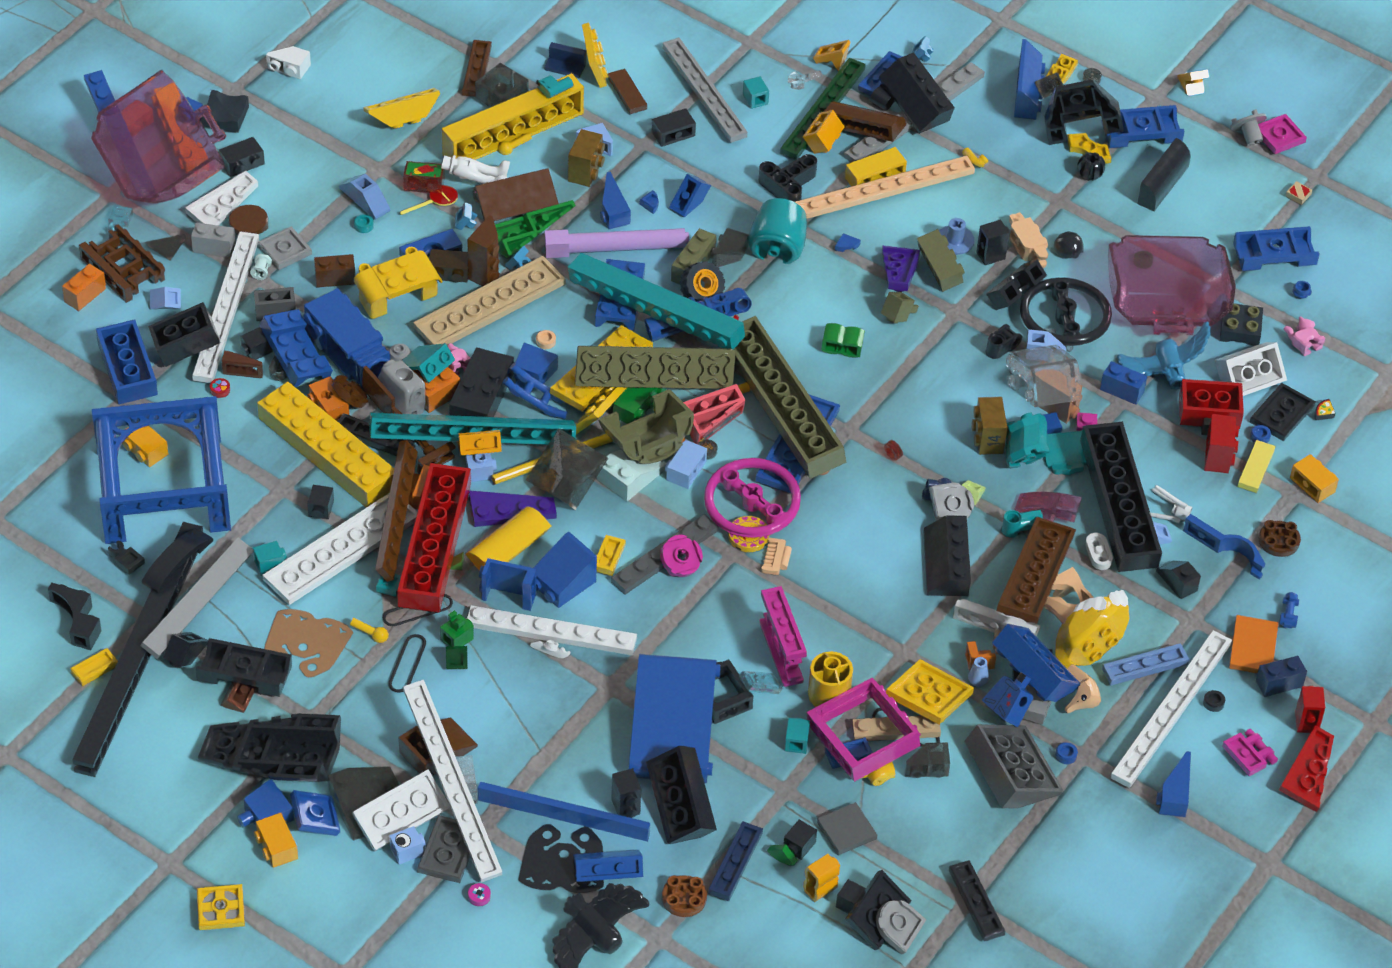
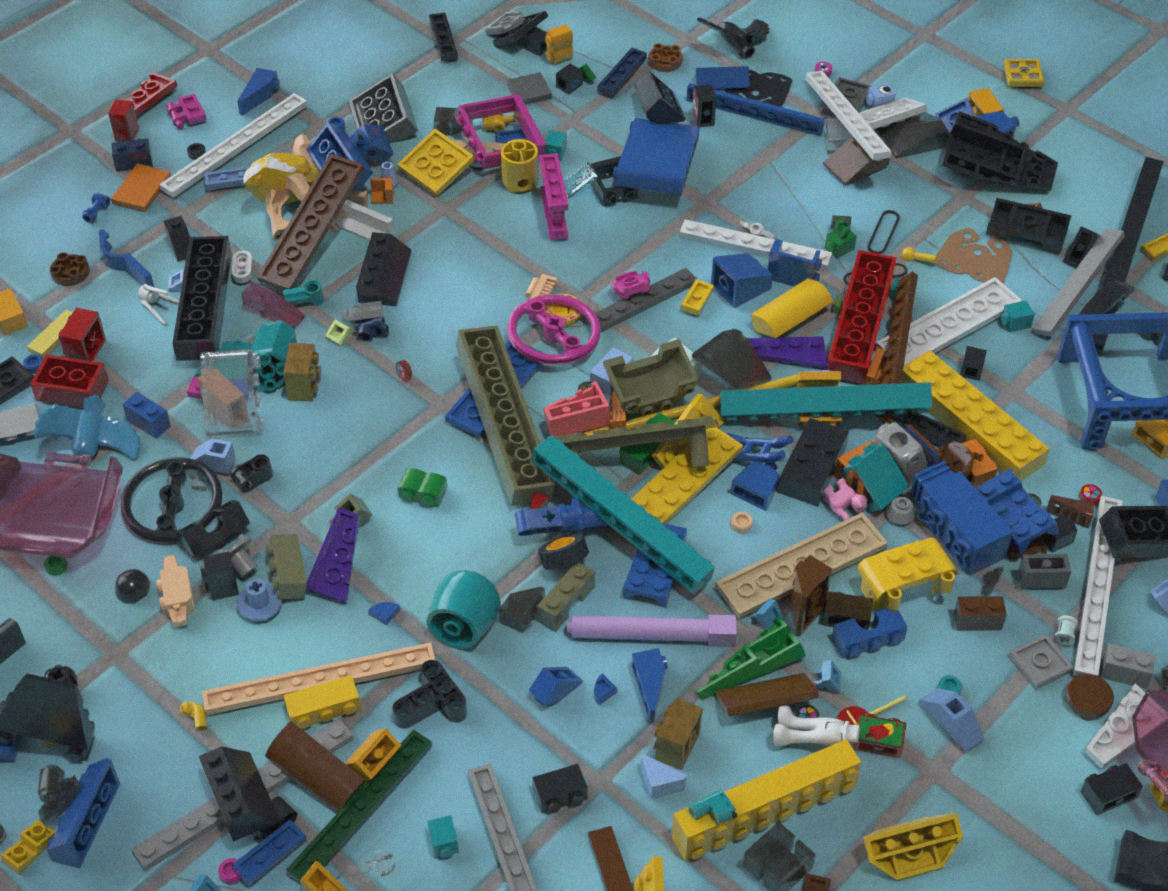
camera: 170 degrees left, 0 degrees up
(987, 263) = (240, 559): none -> light grey piece

